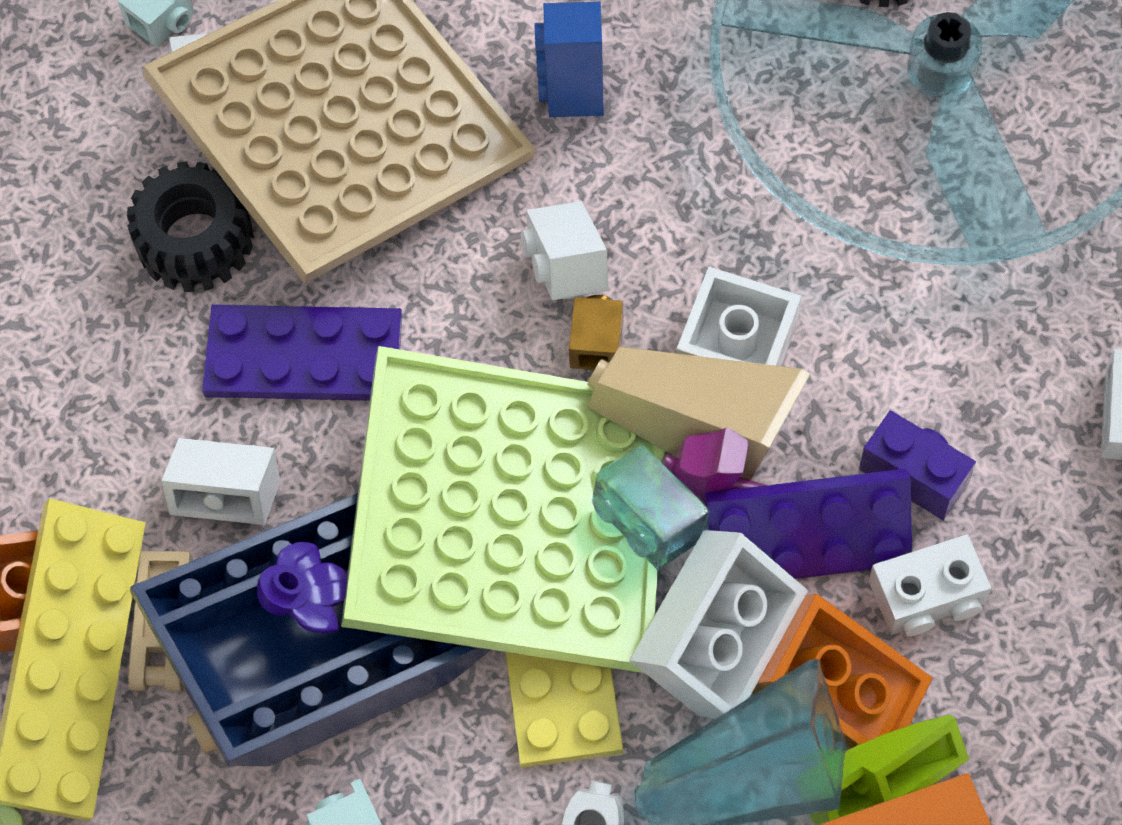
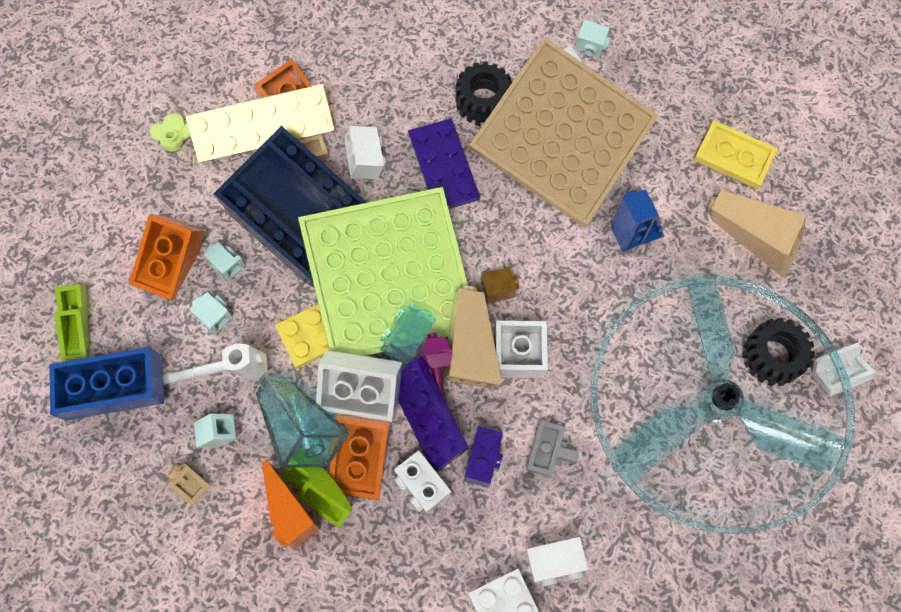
camera: 65 degrees right, 5 degrees up
(303, 588) = (312, 200): dark purple plate -> none
(565, 250) = (533, 254): white brick -> none
(935, 356) = (550, 450): none -> light grey hinge

